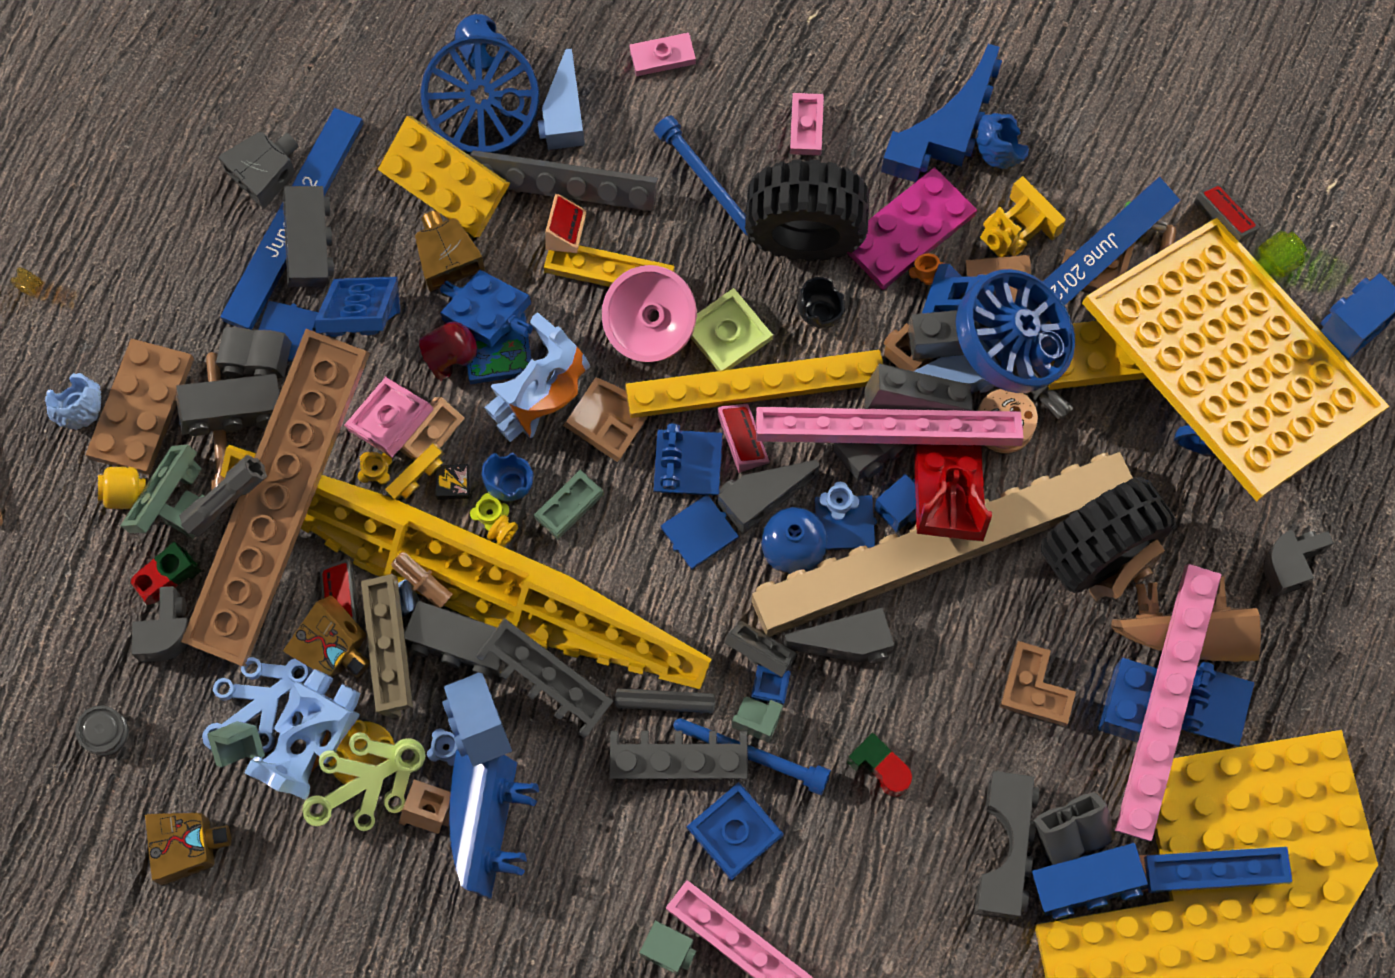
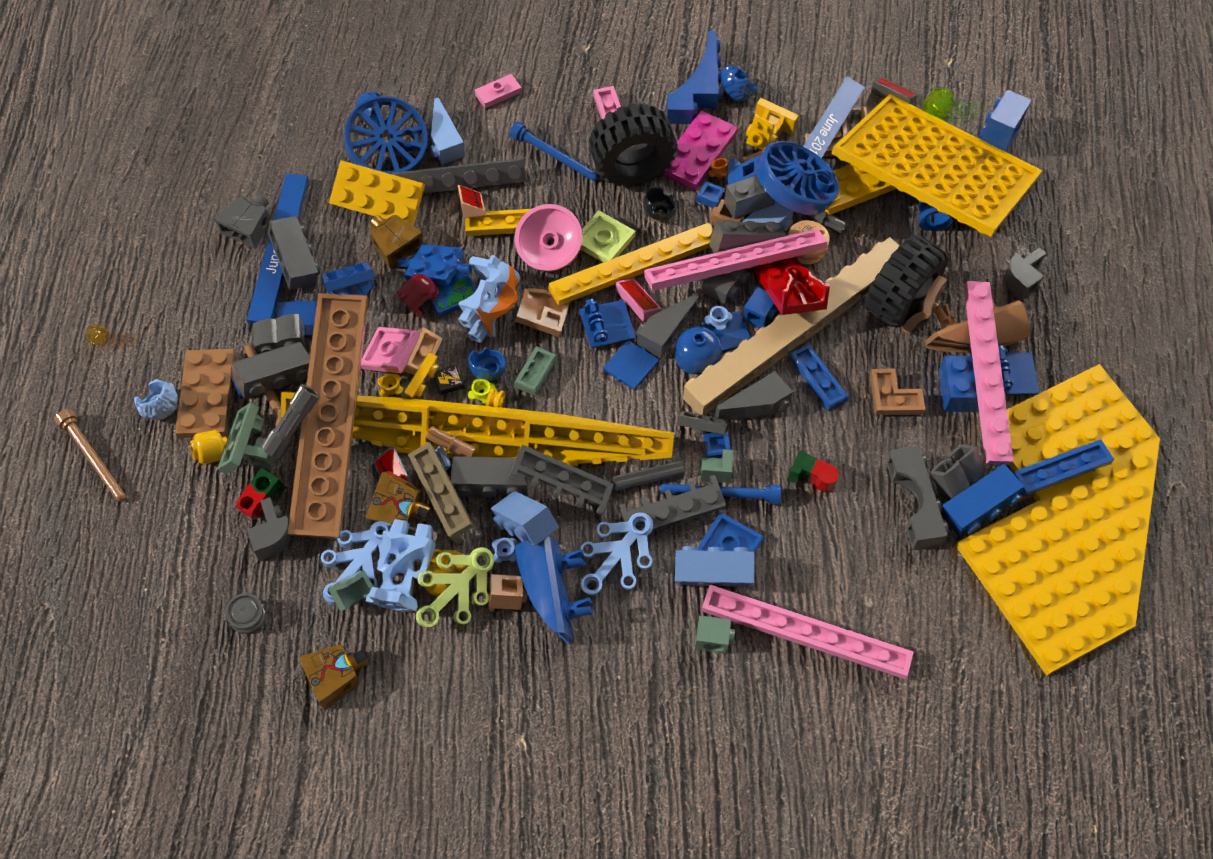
camera: 20 degrees left, 10 degrees down
(588, 797) = (620, 550): none -> light blue plant
(700, 860) = (715, 567): none -> medium blue brick
(900, 305) = (710, 195): none -> blue tile
(944, 628) = (818, 377): none -> blue tile

